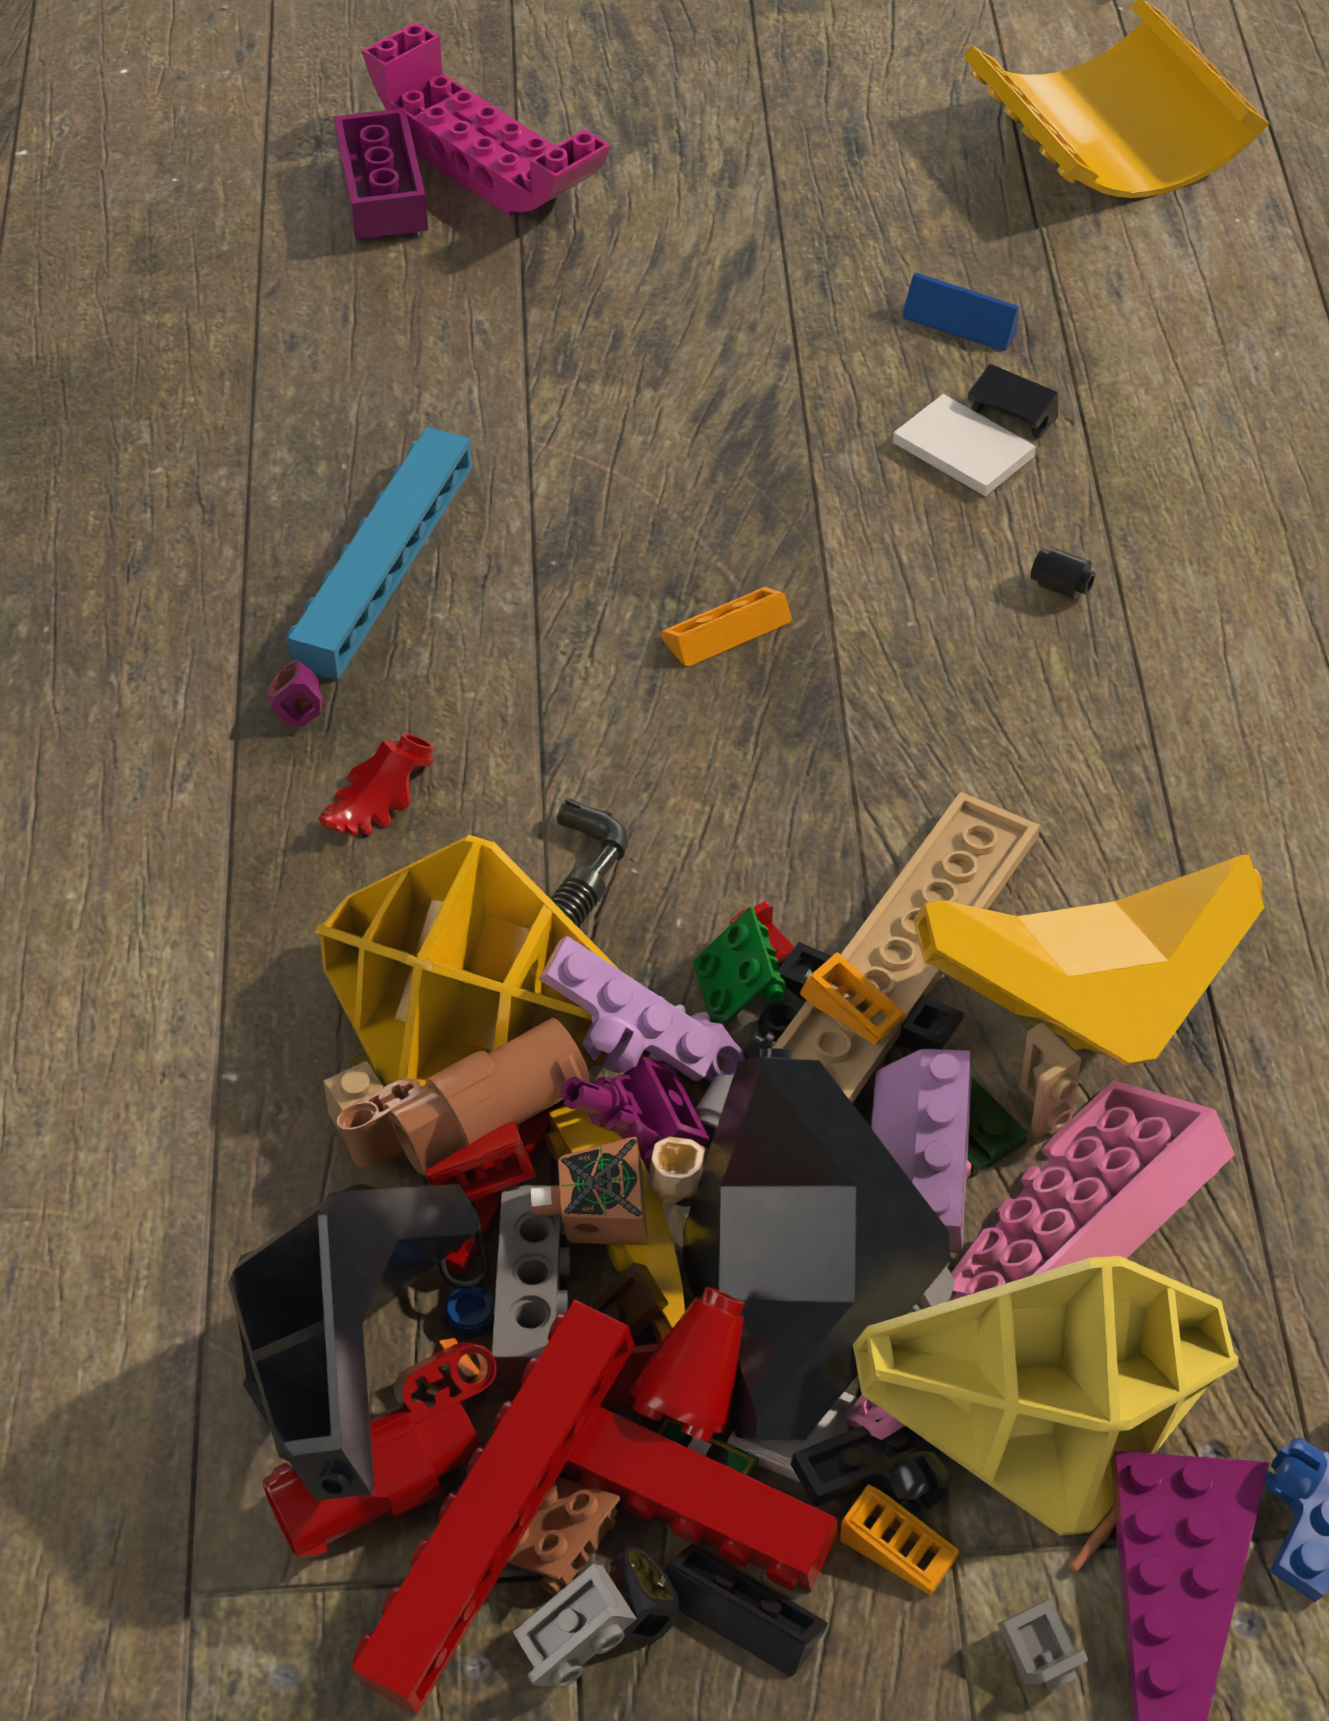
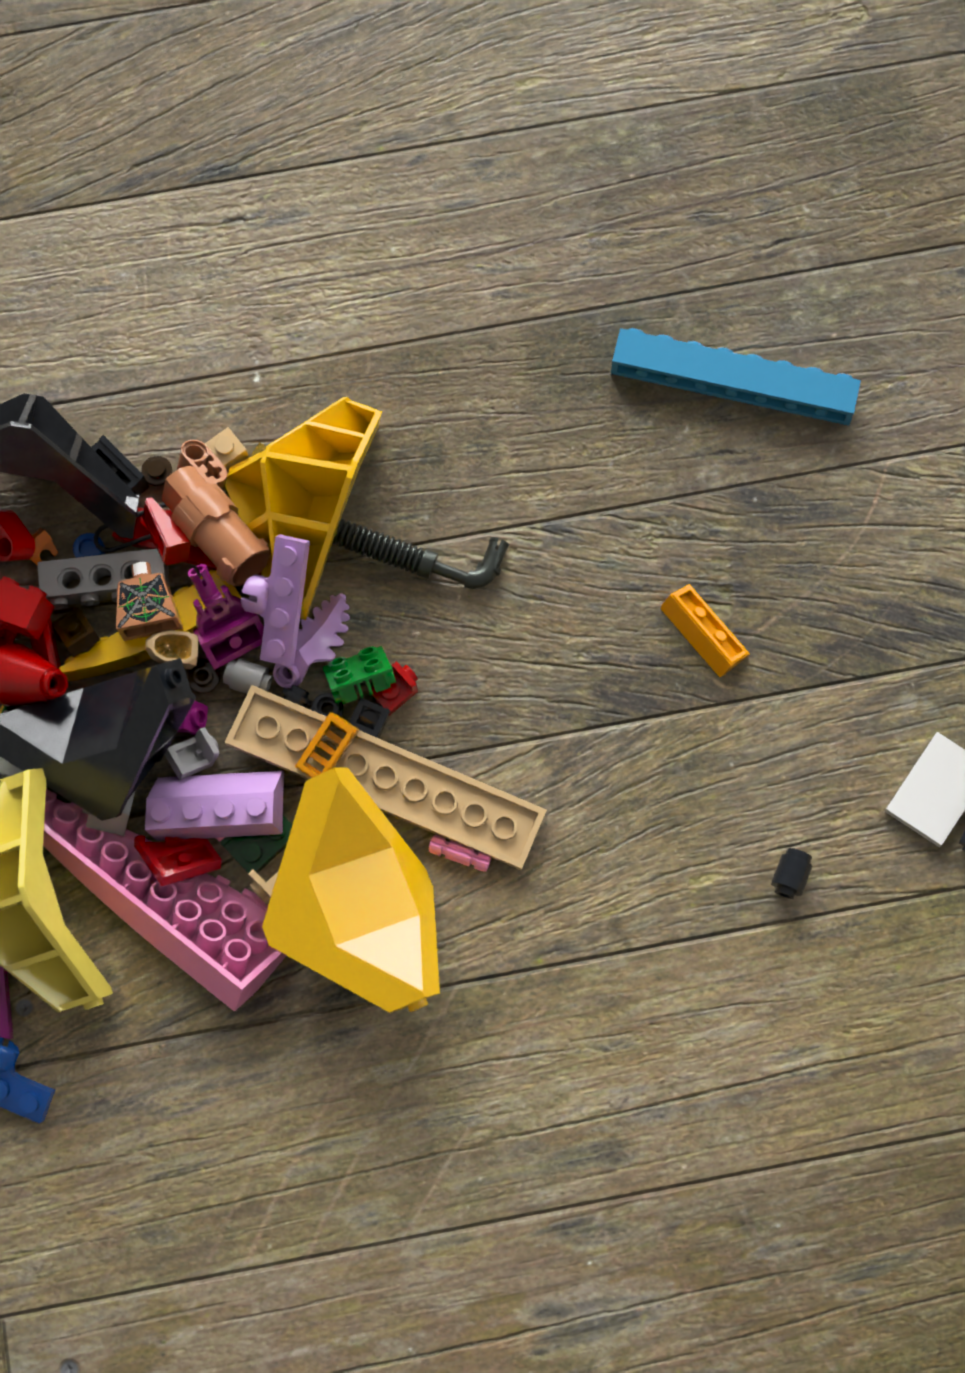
camera: 85 degrees right, 25 degrees up
(295, 694) = (581, 346): magenta rock -> none
(378, 786) = (504, 417): red plant -> none
(998, 1209) = (177, 858): none -> red wing
(1014, 888) = (459, 853): none -> bright pink axle

